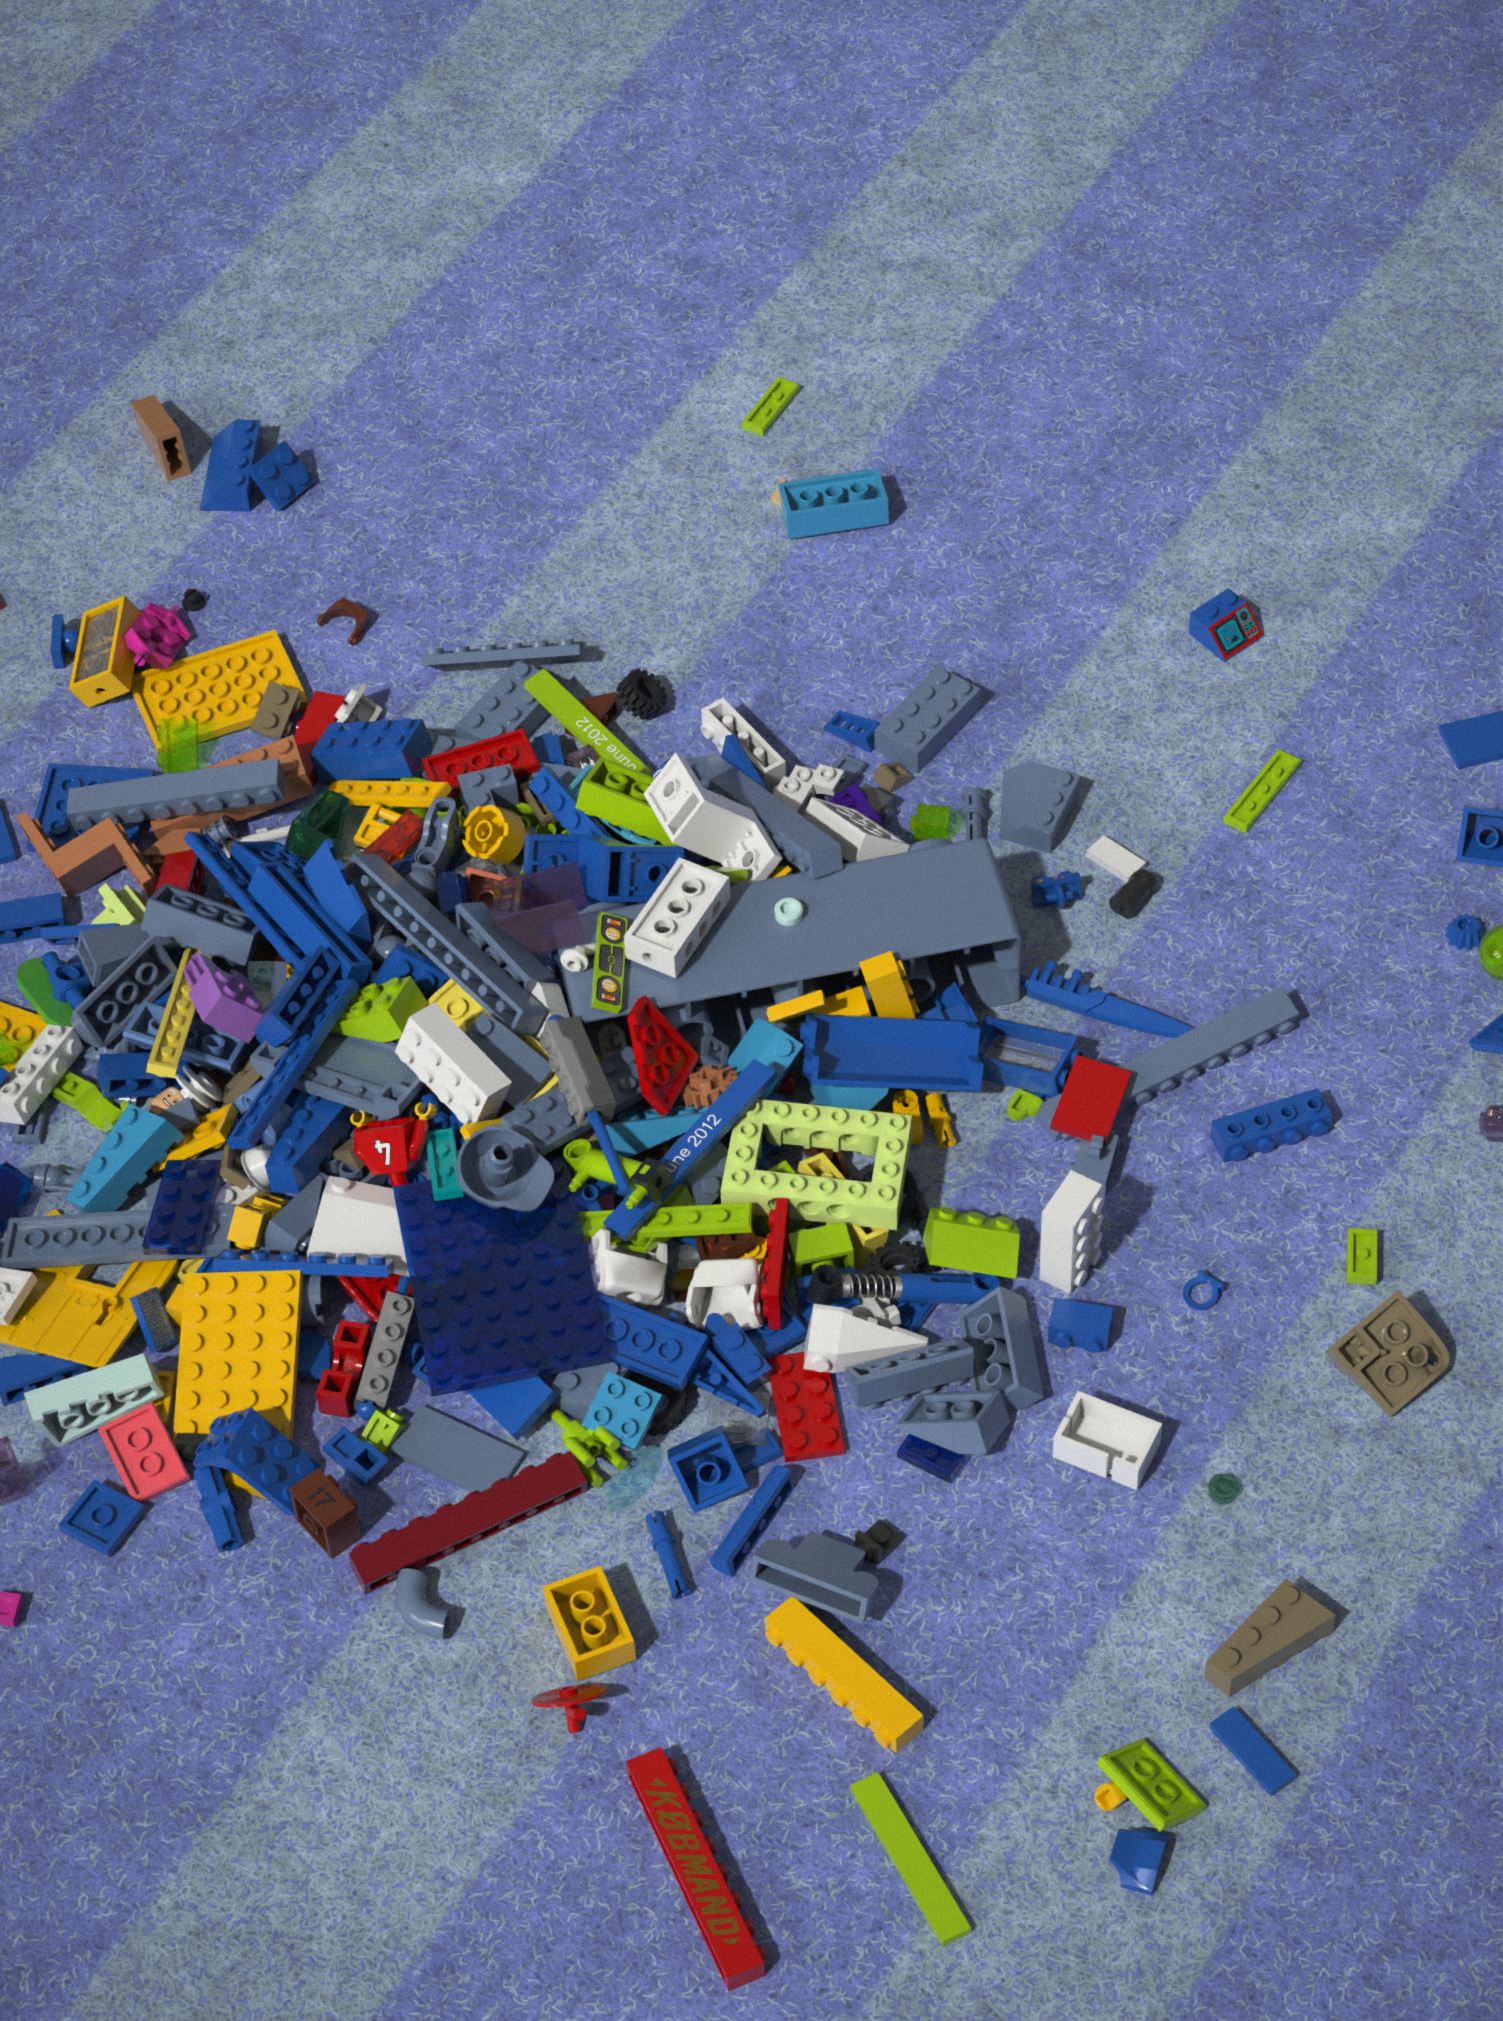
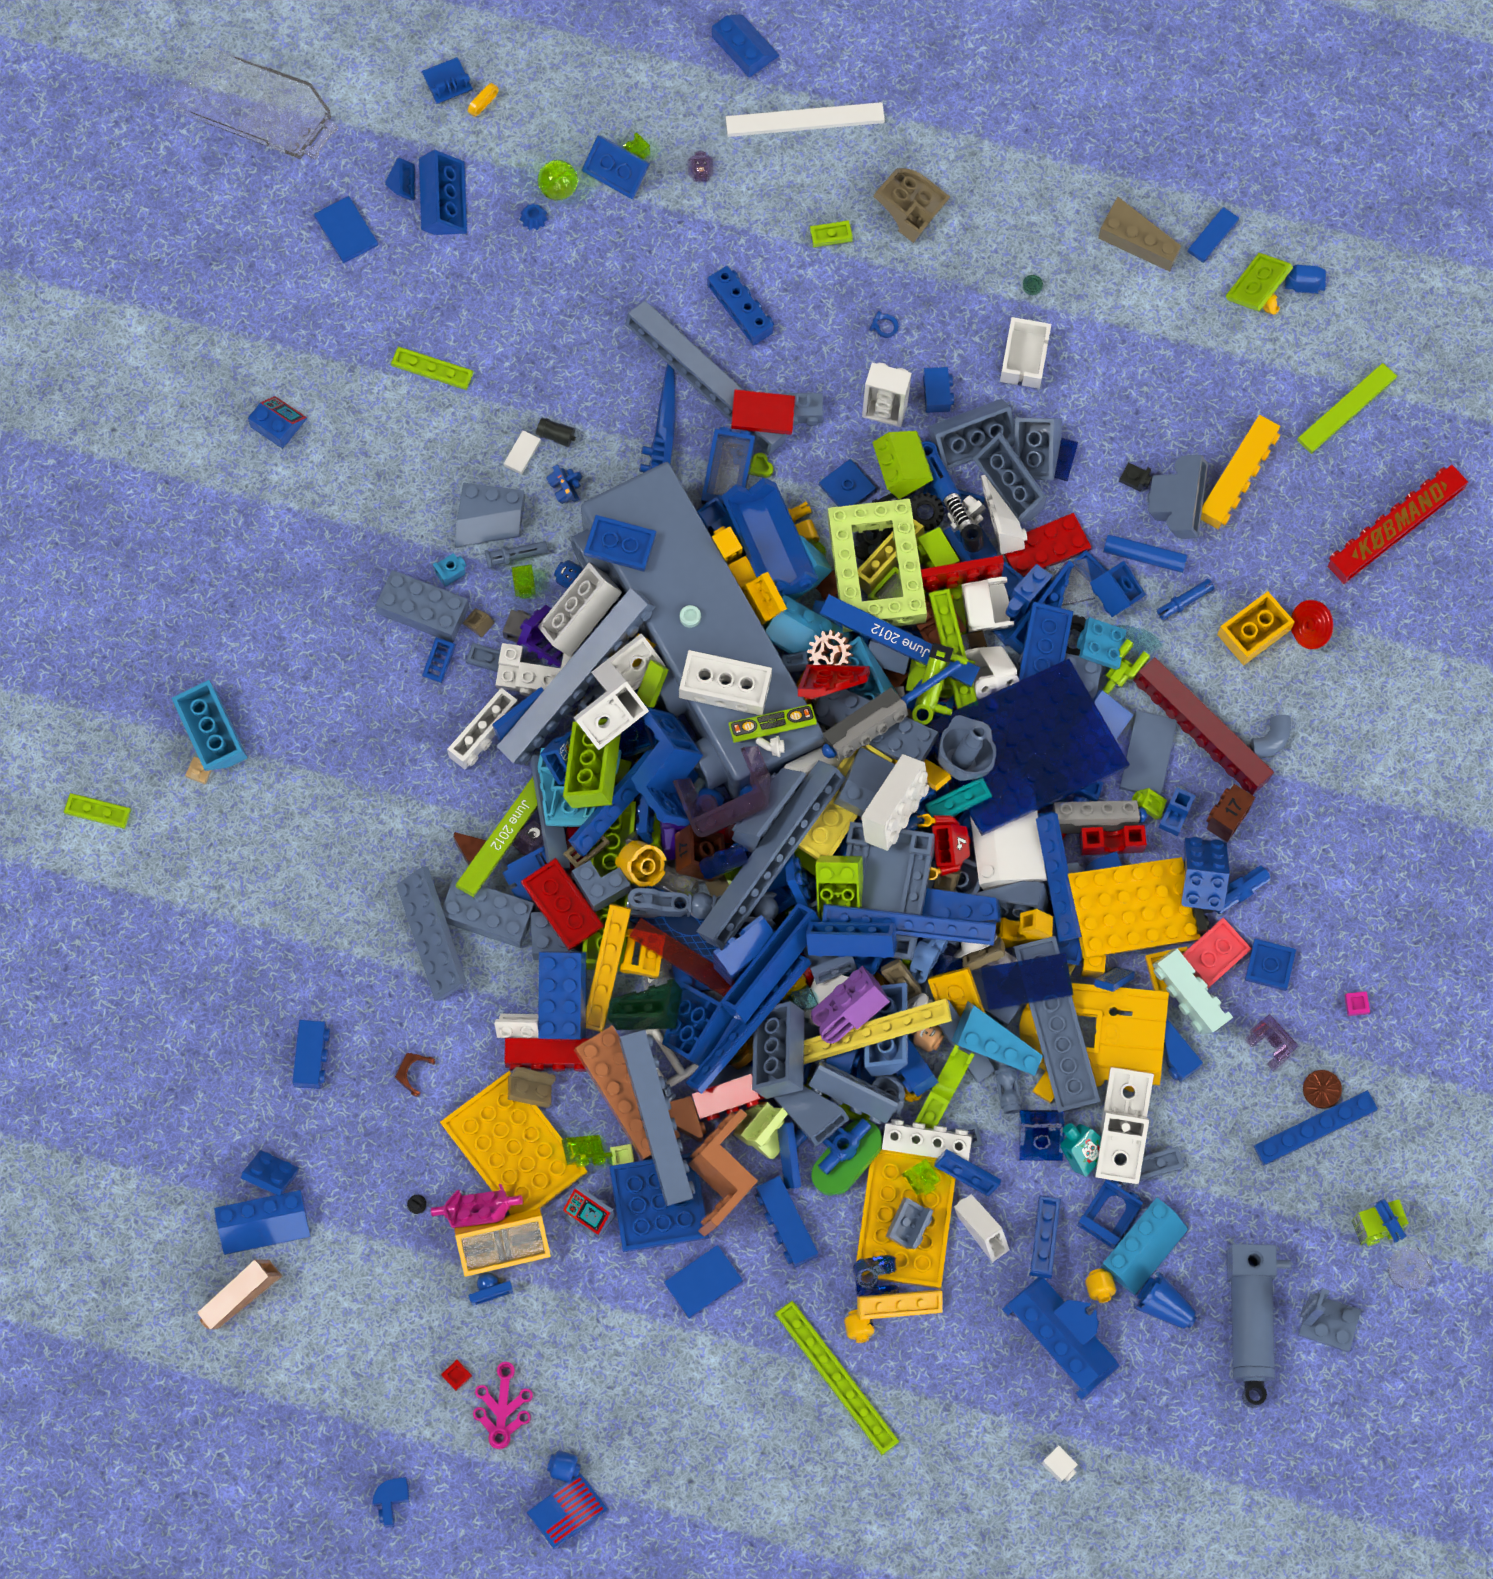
camera: 110 degrees left, 20 degrees up
(108, 739) = (588, 1212): none -> slope
(404, 533) = (310, 1054): none -> blue brick
(641, 694) = (448, 816): black tyre -> none
(912, 856) = (620, 543): none -> blue plate
(967, 1191) = (847, 485): none -> blue plate
(970, 755) = (449, 575): none -> dark azure brick

